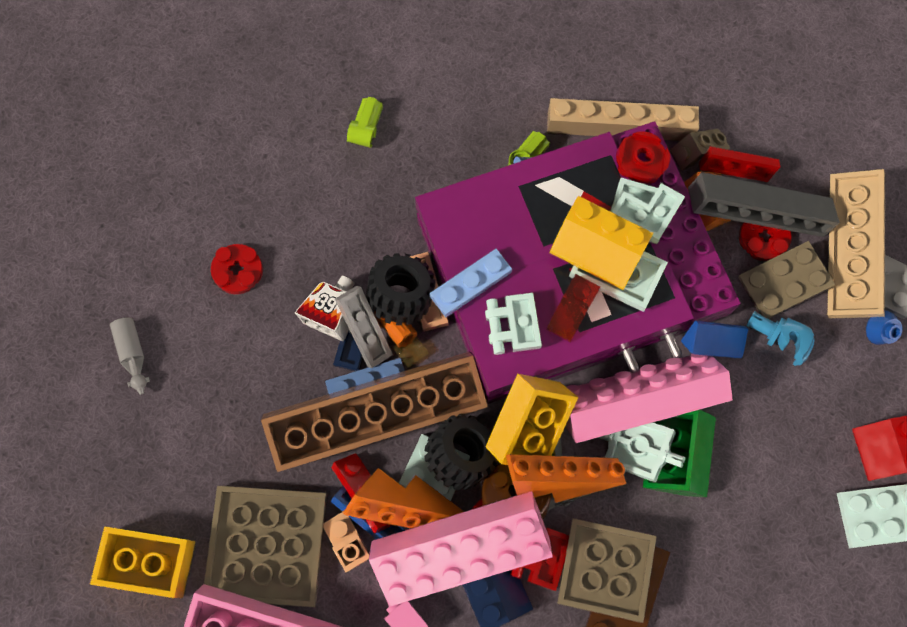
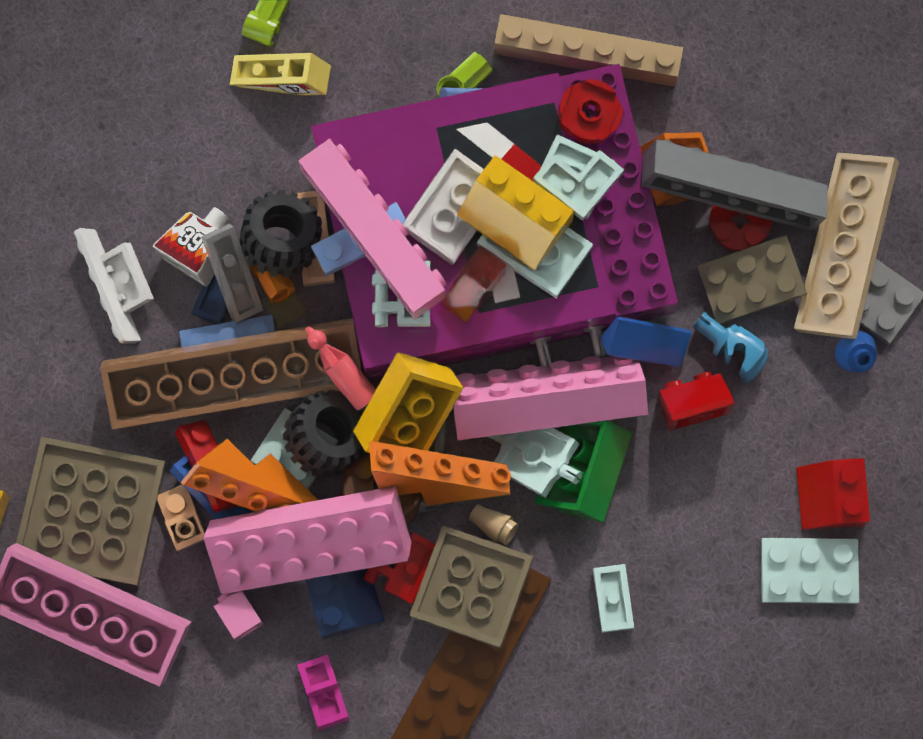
camera: 10 degrees right, 5 degrees up
(246, 278) = (99, 194): red plate -> none
(269, 346) = (118, 282): none -> white bracket
(383, 165) = (281, 73): none -> light yellow slope
(469, 396) = (342, 370): none -> coral wheel
(482, 271) = (372, 228): none -> bright pink brick
(531, 253) = (435, 214): none -> white tile
(613, 510) = (495, 525): none -> tan cone
(695, 145) = (680, 95): dark tan bracket -> none
(726, 562) = (613, 598): none -> light aqua plate
(739, 164) = (722, 127): red plate -> none
(763, 383) = (695, 401): none -> red slope

